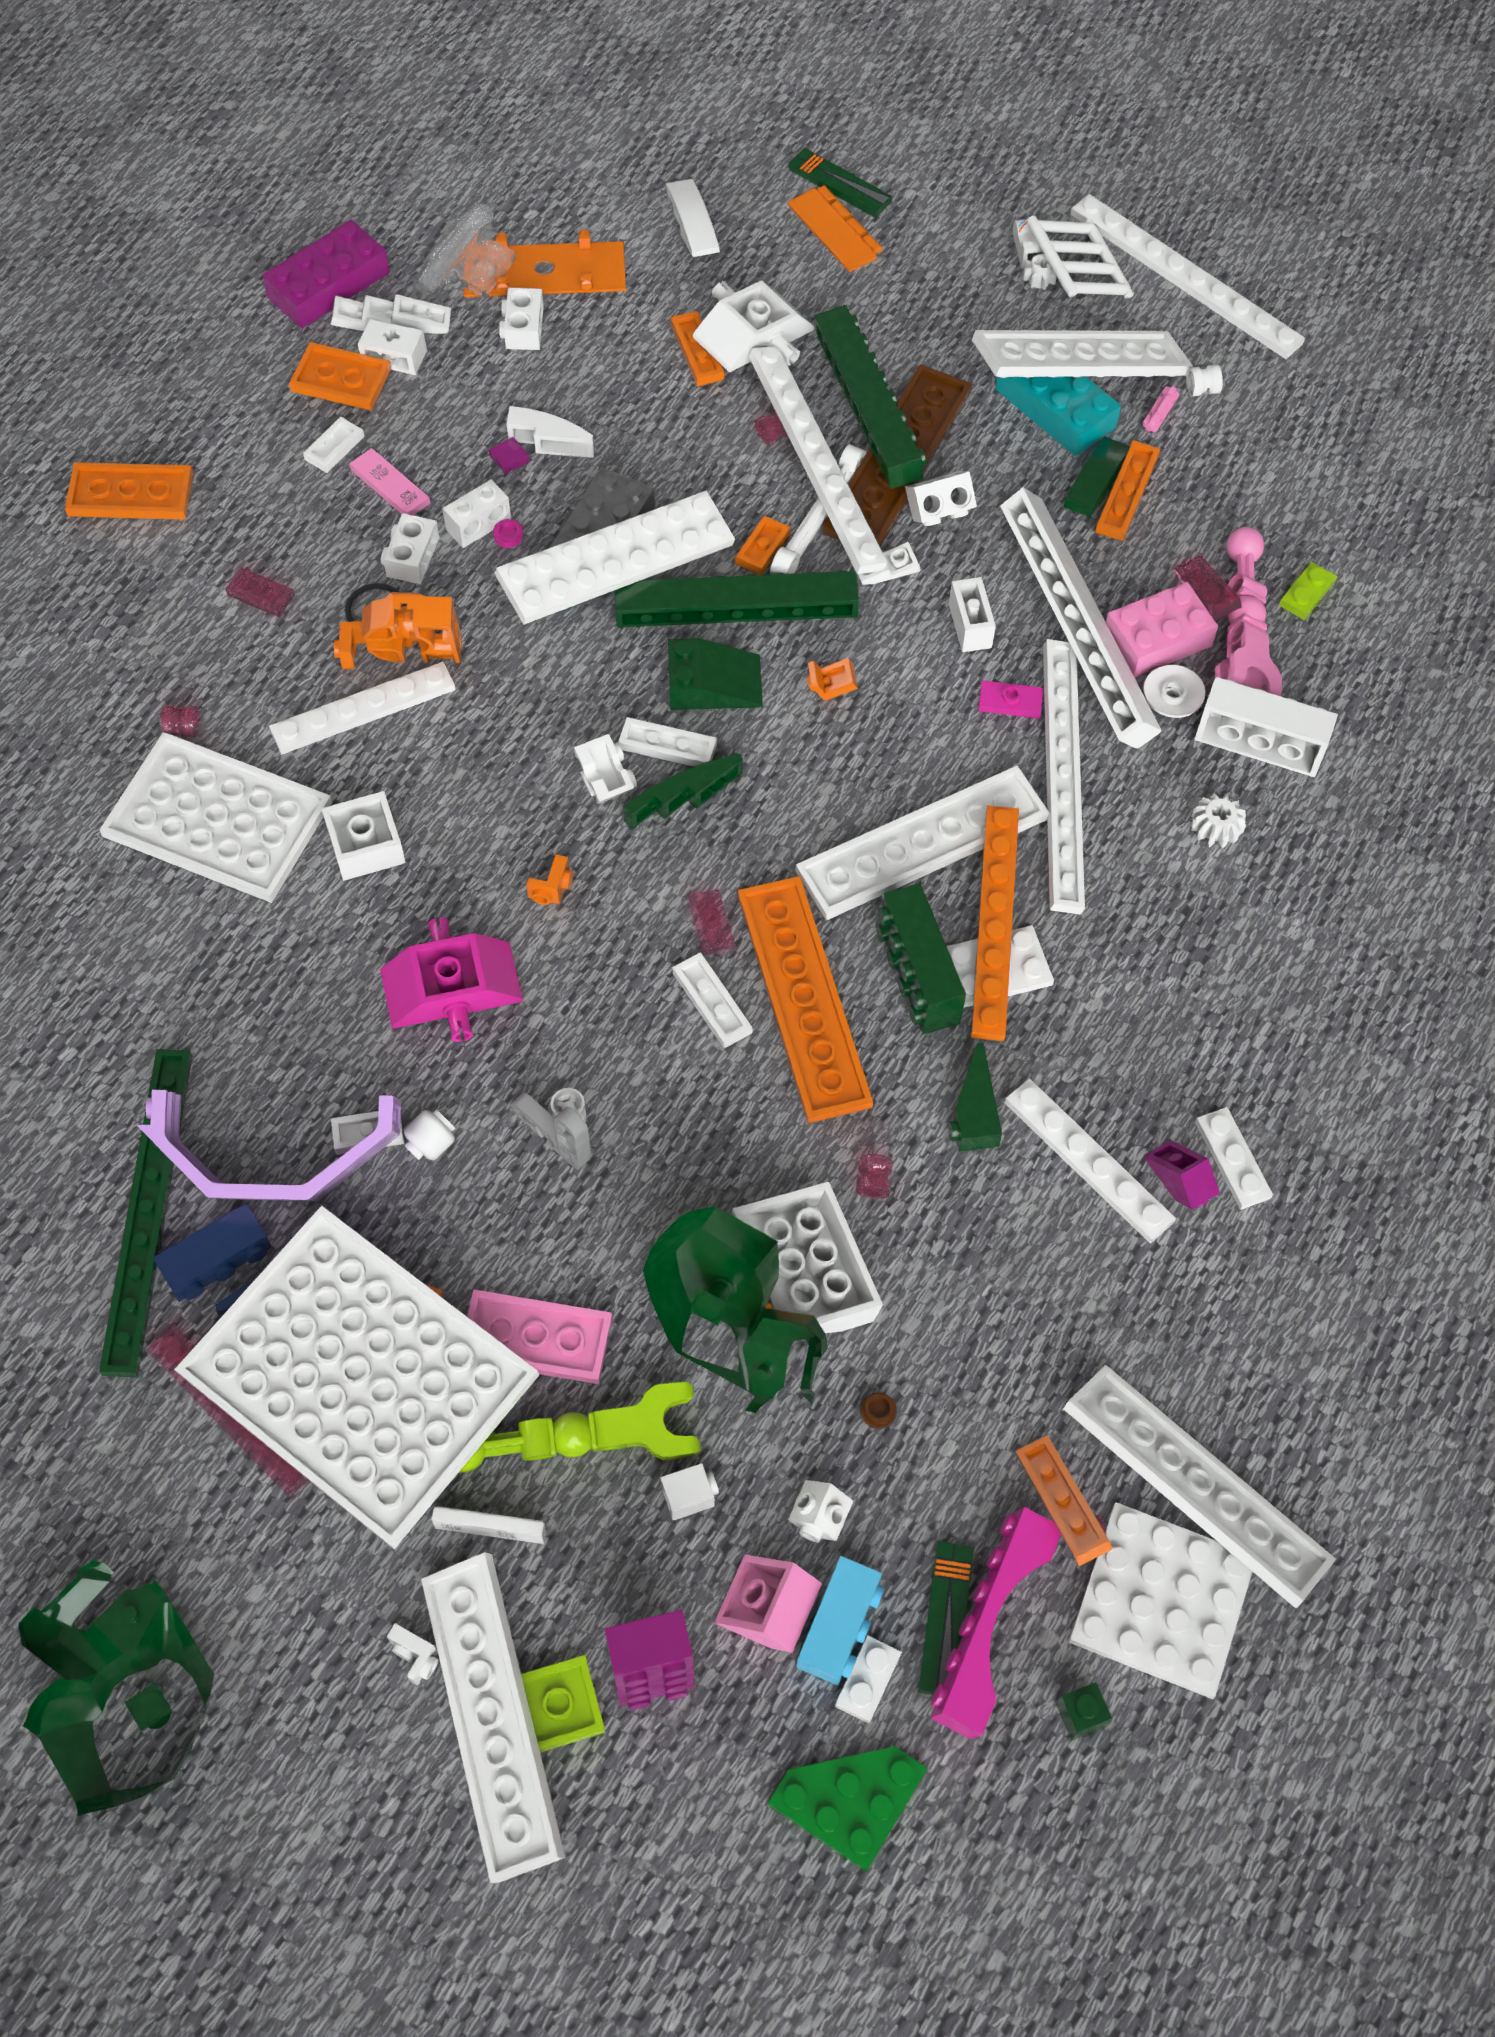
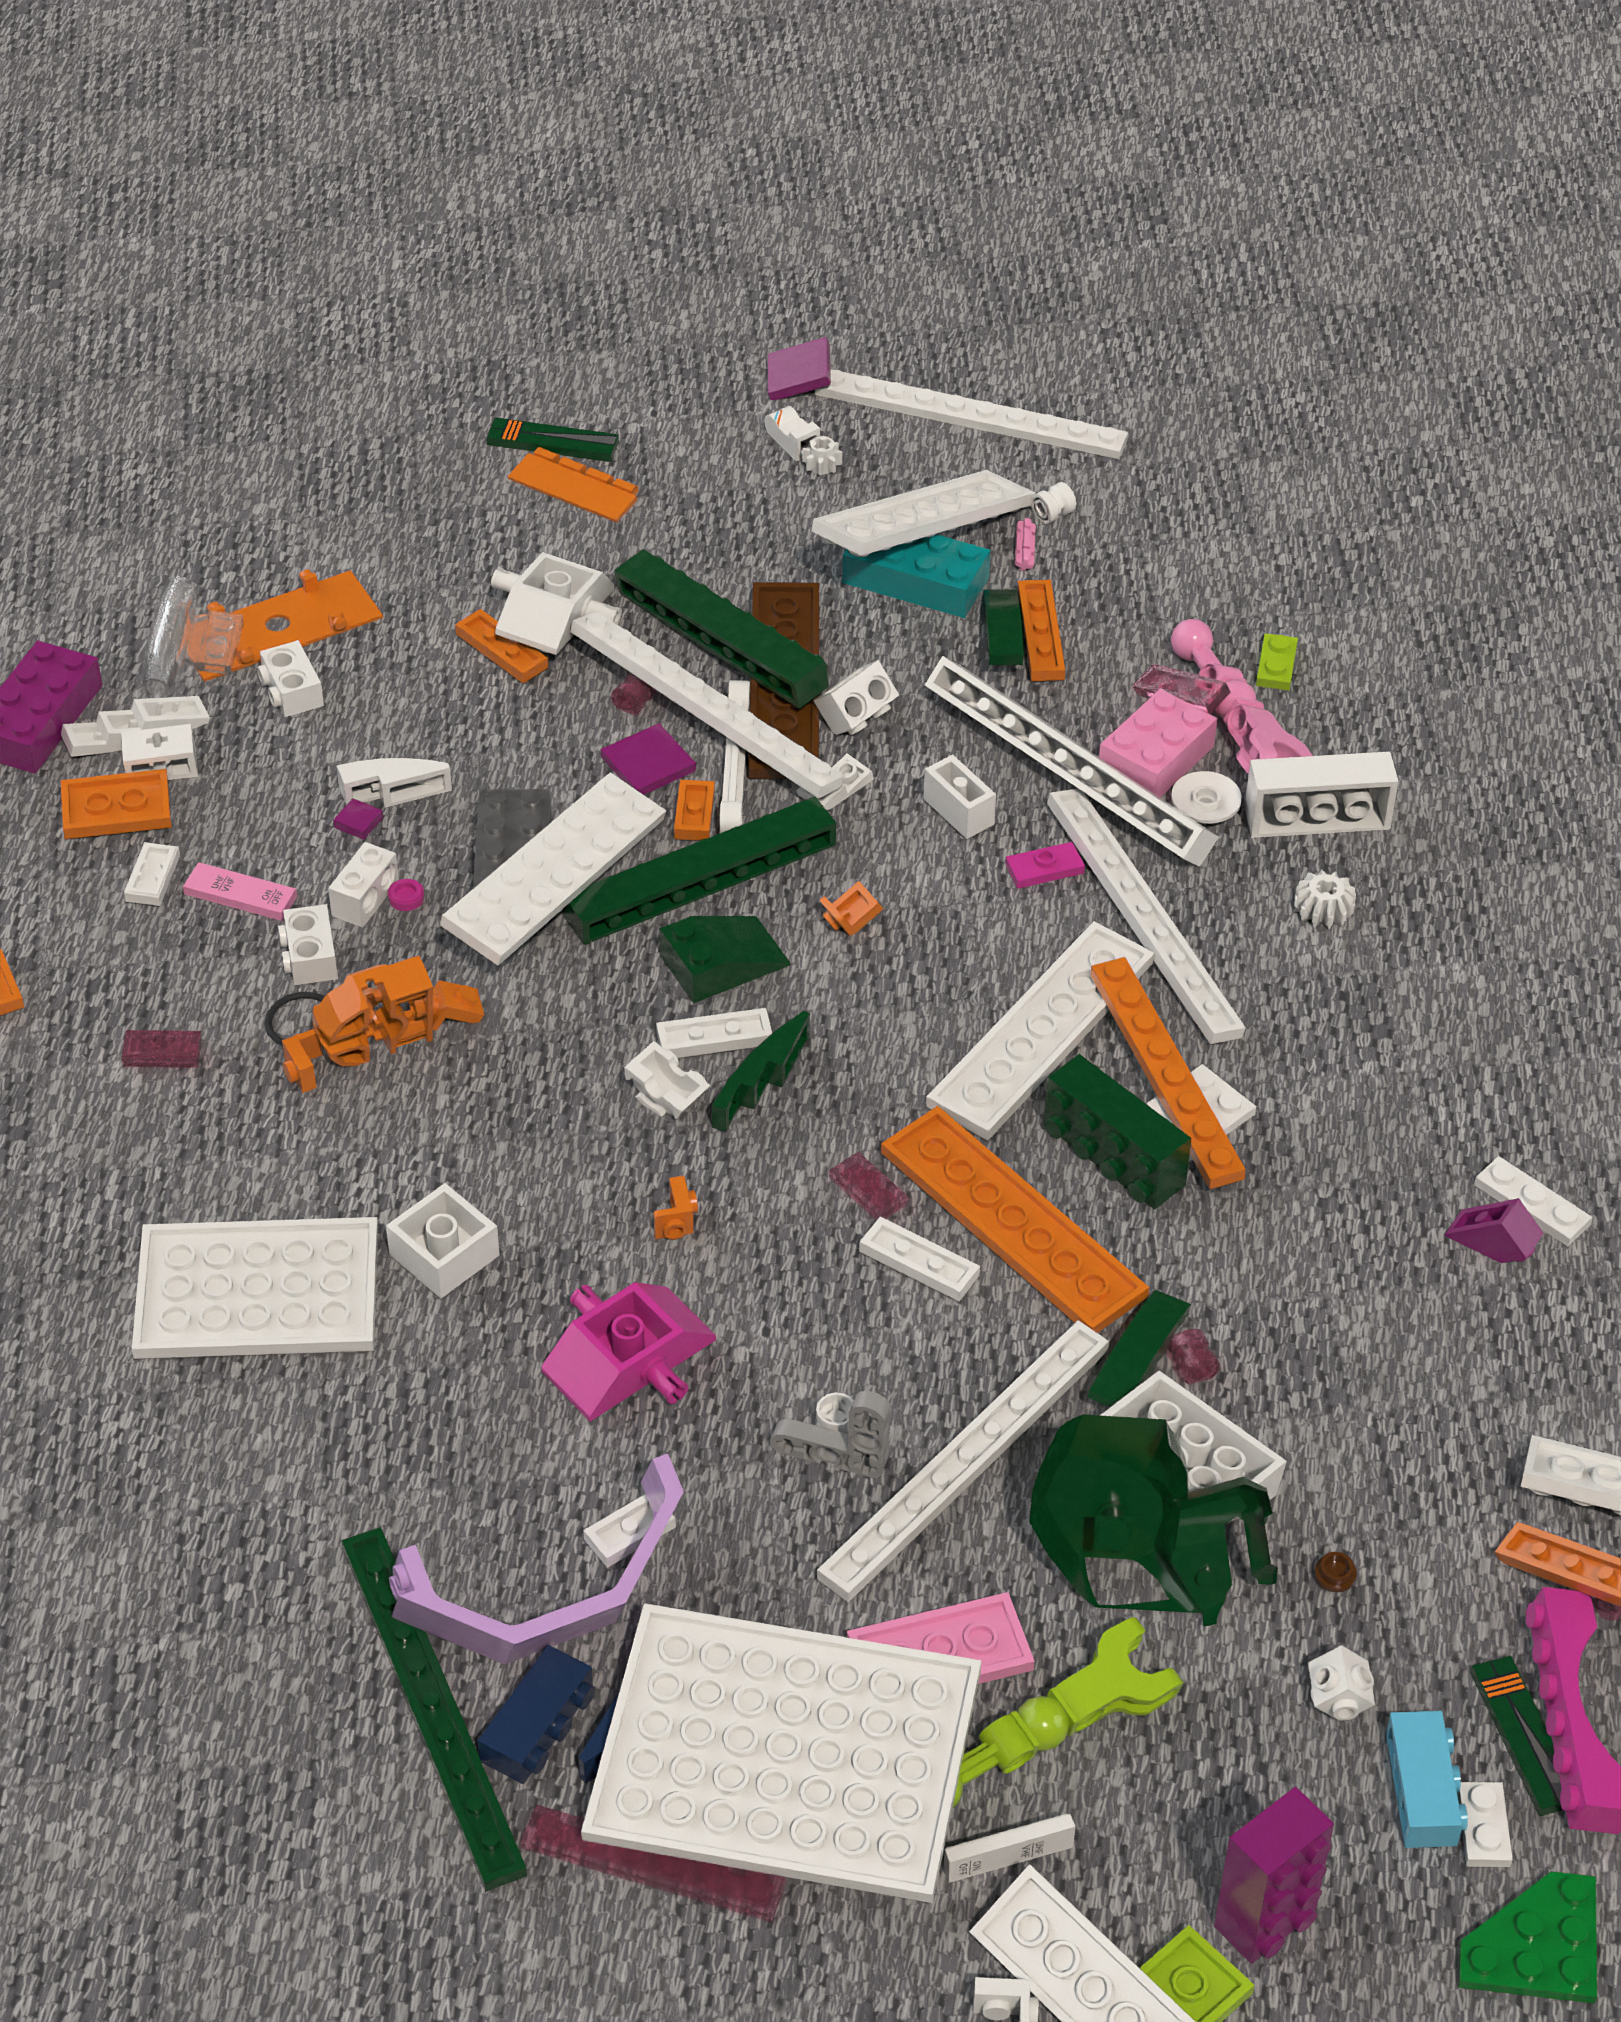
camera: 25 degrees left, 15 degrees down
(180, 721) = (154, 1206): clear pink wheel -> none
(362, 707) = (351, 1122): white plate -> none
(429, 1135) = (703, 1503): white head -> none
(487, 639) = (456, 1003): none -> orange bracket
(647, 1184) = (961, 1461): none -> white plate
(689, 1491) = (1194, 1727): white brick -> none
(692, 217) = (418, 521): white slope -> none
(754, 488) = (648, 759): none -> magenta tile
(769, 1602) = (1350, 1786): bright pink slope -> none
(834, 1151) = (1139, 1348): none -> dark green slope
(976, 1114) = (1258, 1256): dark green slope -> none
(1063, 268) = (852, 442): white bar -> none
(1066, 187) = (799, 369): none -> magenta tile
(1090, 1160) = (1395, 1258): white plate -> none

